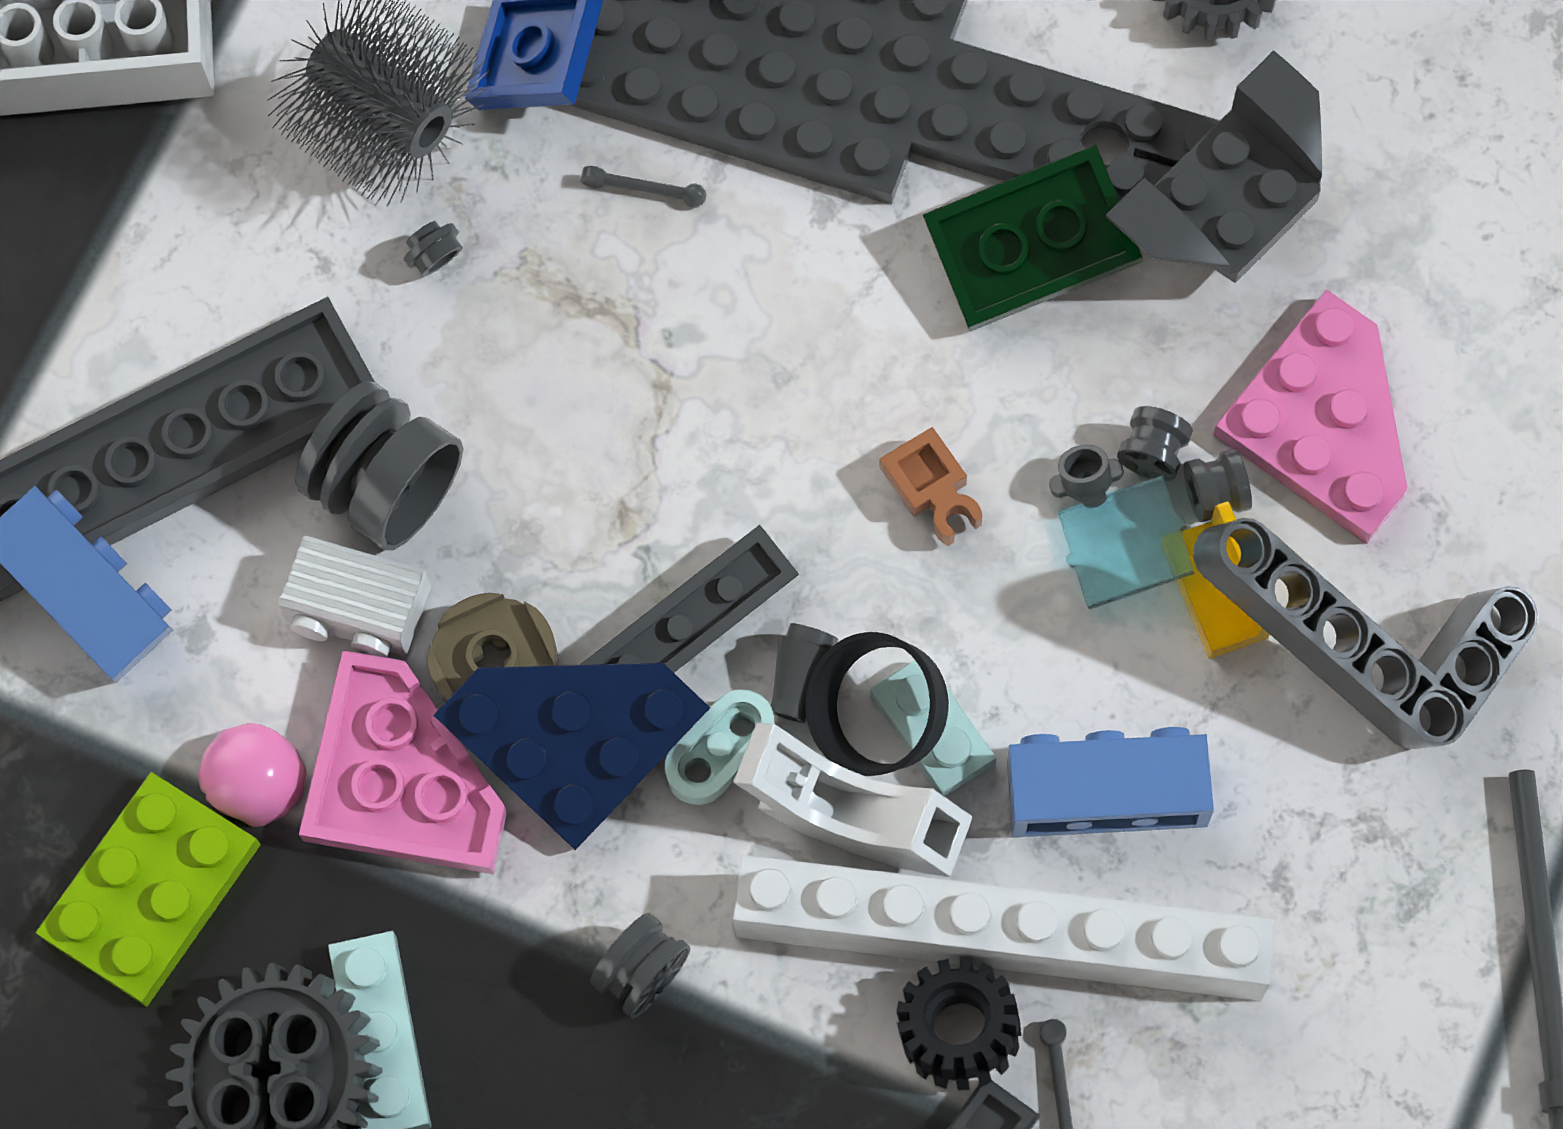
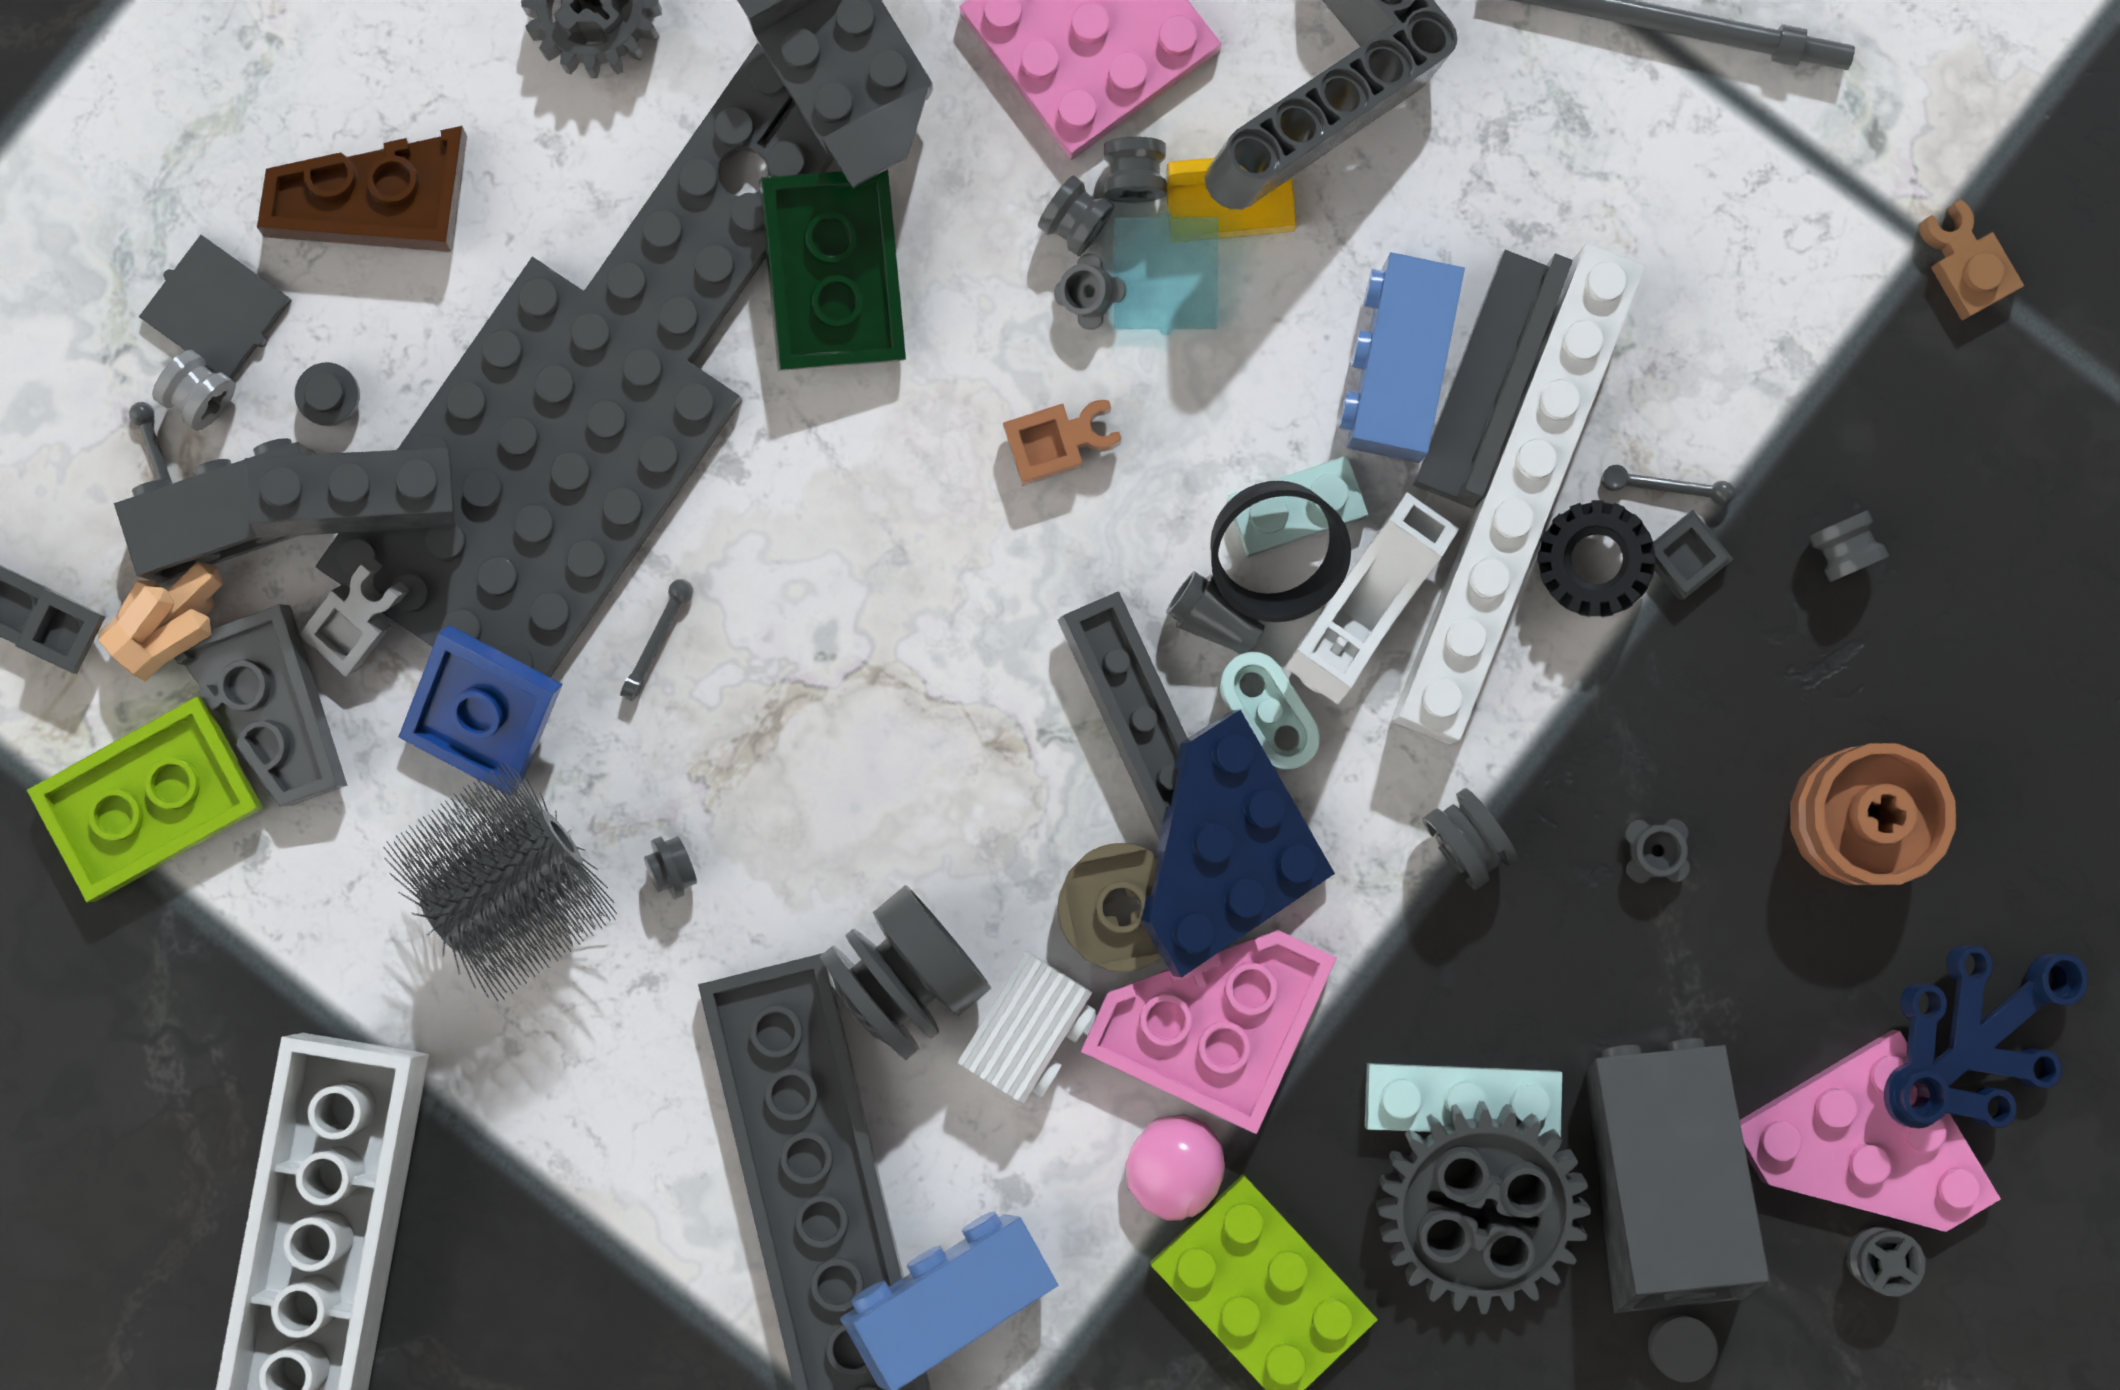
camera: 80 degrees left, 15 degrees up
(1119, 872) = (1491, 377): none -> dark grey fence

